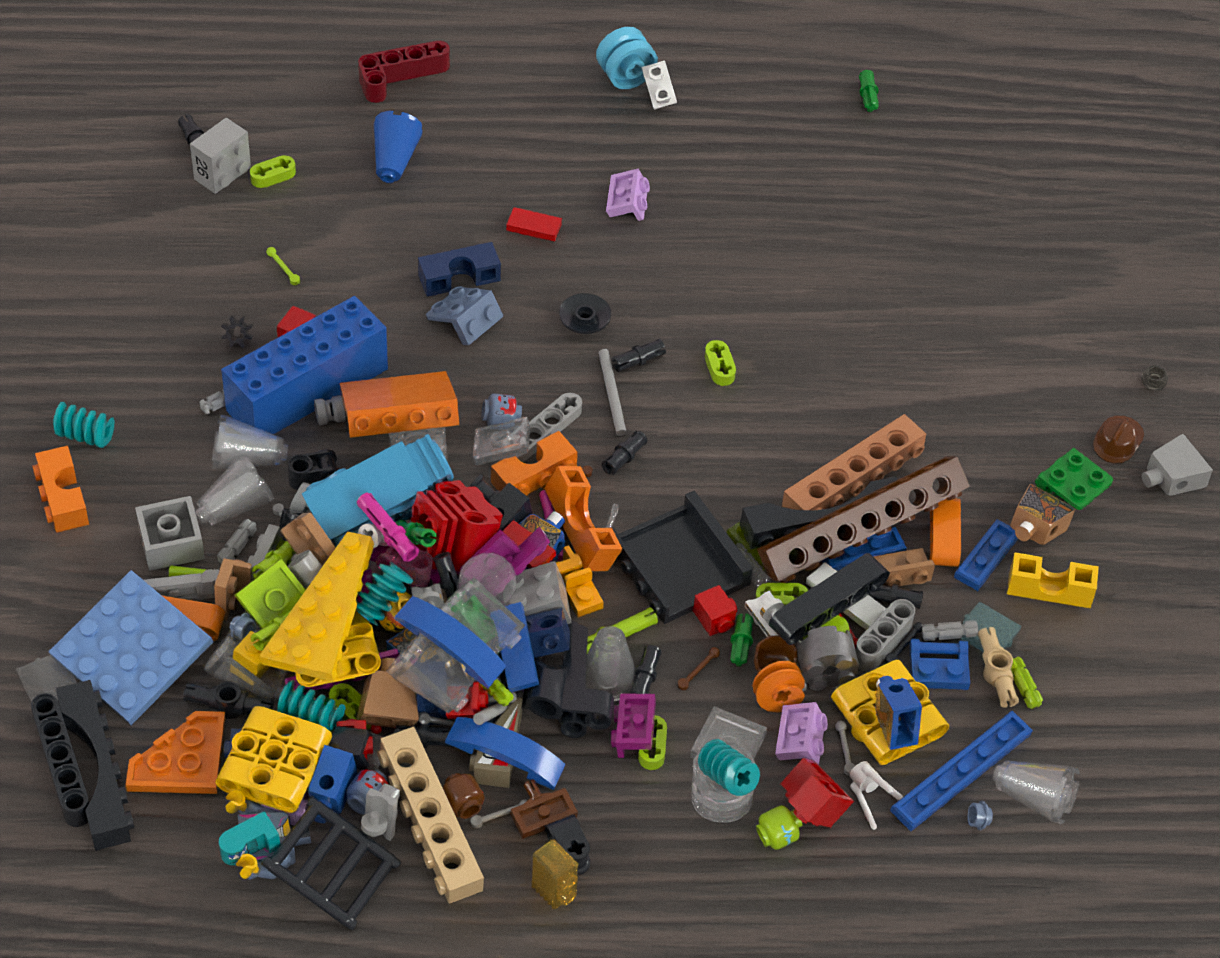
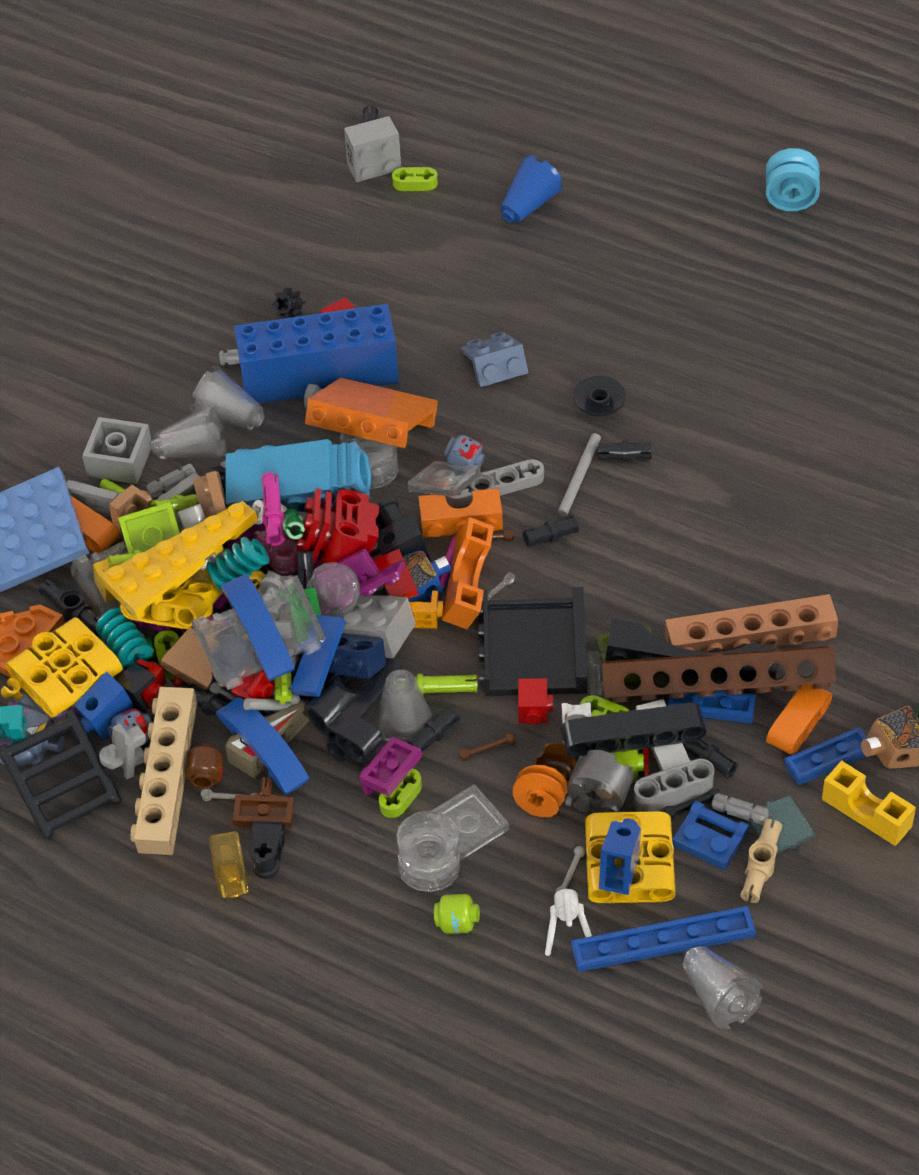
camera: 35 degrees right, 0 degrees up
(65, 506) = (55, 396): orange arch -> none
(83, 427) = (112, 336): teal piece -> none
(241, 626) = (114, 546): sand blue plate -> none
(294, 278) = (371, 277): lime hinge -> none
(311, 467) = (262, 435): black piece -> none
(399, 65) = (586, 122): dark red beam -> none
(476, 261) = (497, 311): dark blue arch -> none
(534, 224) = (612, 302): red tile -> none
(582, 592) = (428, 637): light orange bracket -> none
(628, 194) = (714, 305): lavender bracket -> none
(659, 85) = (809, 214): white hips -> none
(715, 363) = (691, 484): lime beam -> none
(728, 767) = (424, 836): teal piece -> none
(741, 639) = (540, 736): green axle -> none
(801, 732) = (536, 842): lavender bracket -> none
(815, 794) = (503, 899): red brick -> none
(907, 567) = (736, 734): medium nougat bracket -> none
(979, 815) = (650, 986): sand blue plate -> none
(1026, 684) = (780, 886): lime axle -> none

